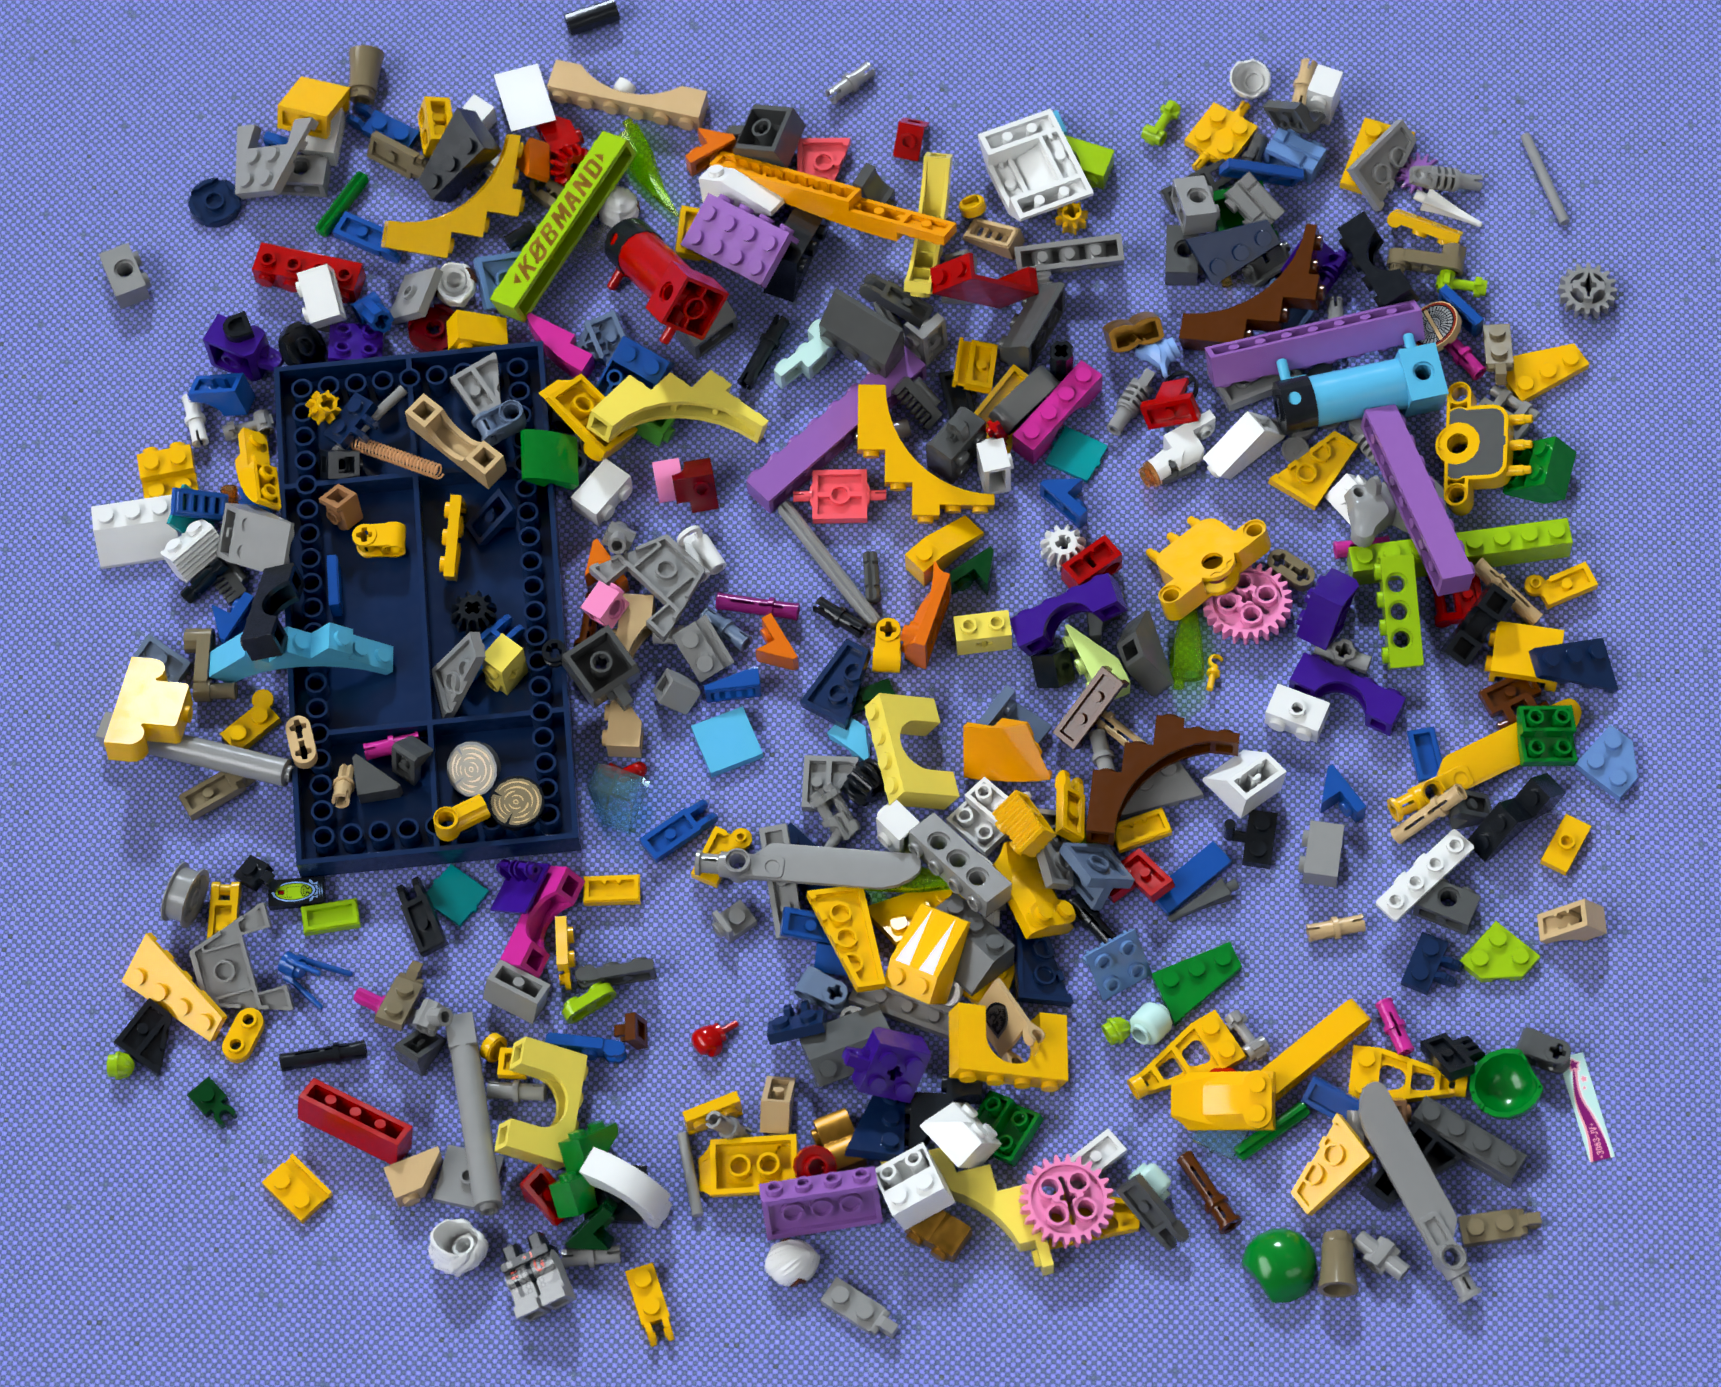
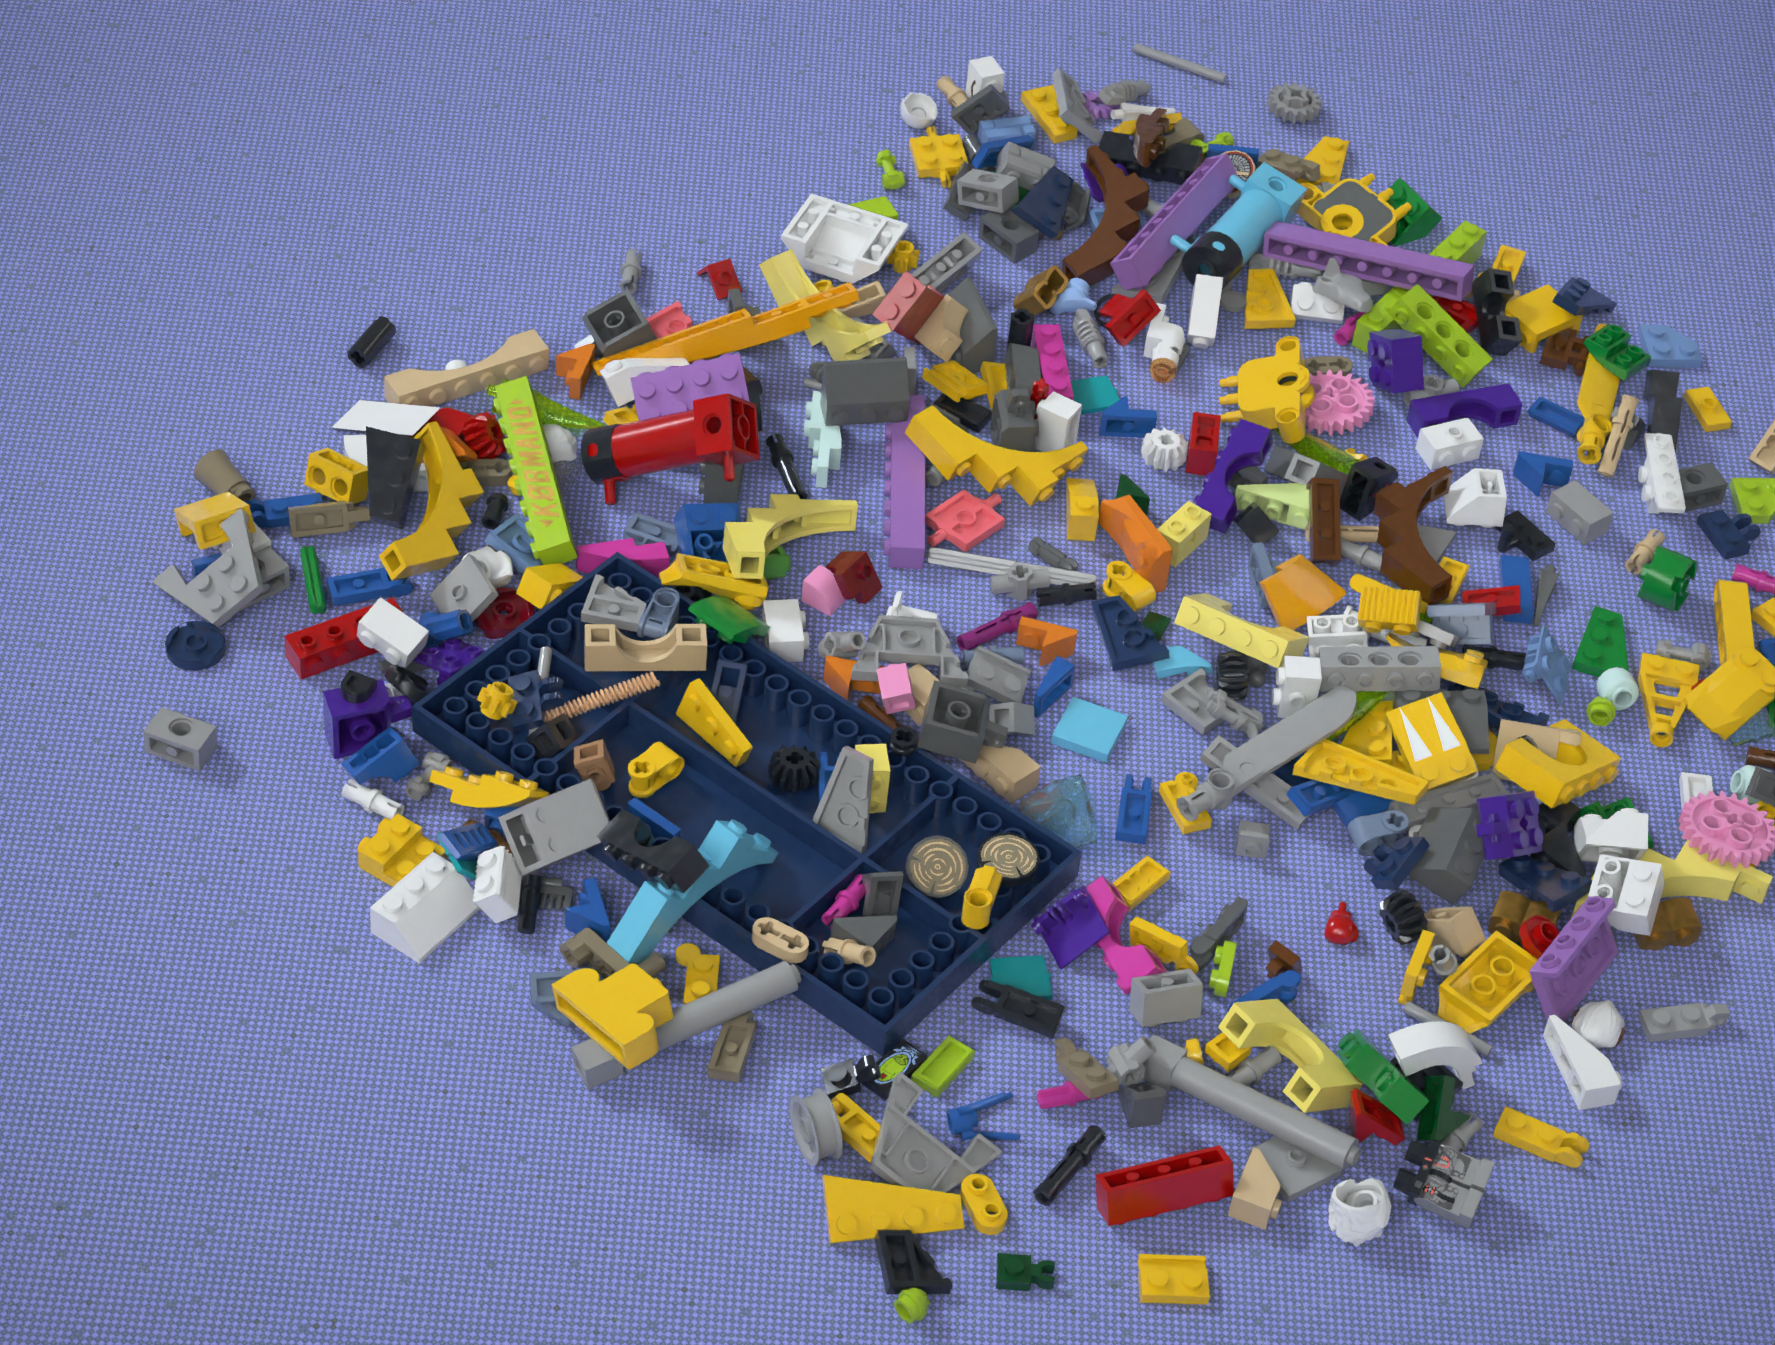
camera: 55 degrees left, 20 degrees down
(735, 1288) = (1583, 1067): none -> white slope
(749, 1069) = (1403, 917): none -> black gear
(815, 581) = (1020, 581): none -> light grey axle
(1002, 314) = (943, 328): none -> tan arch
(1177, 698) = (1363, 484): none -> black torso
(1305, 966) = (1667, 578): none -> green brick
(1380, 243) = (1149, 136): none -> reddish brown slope

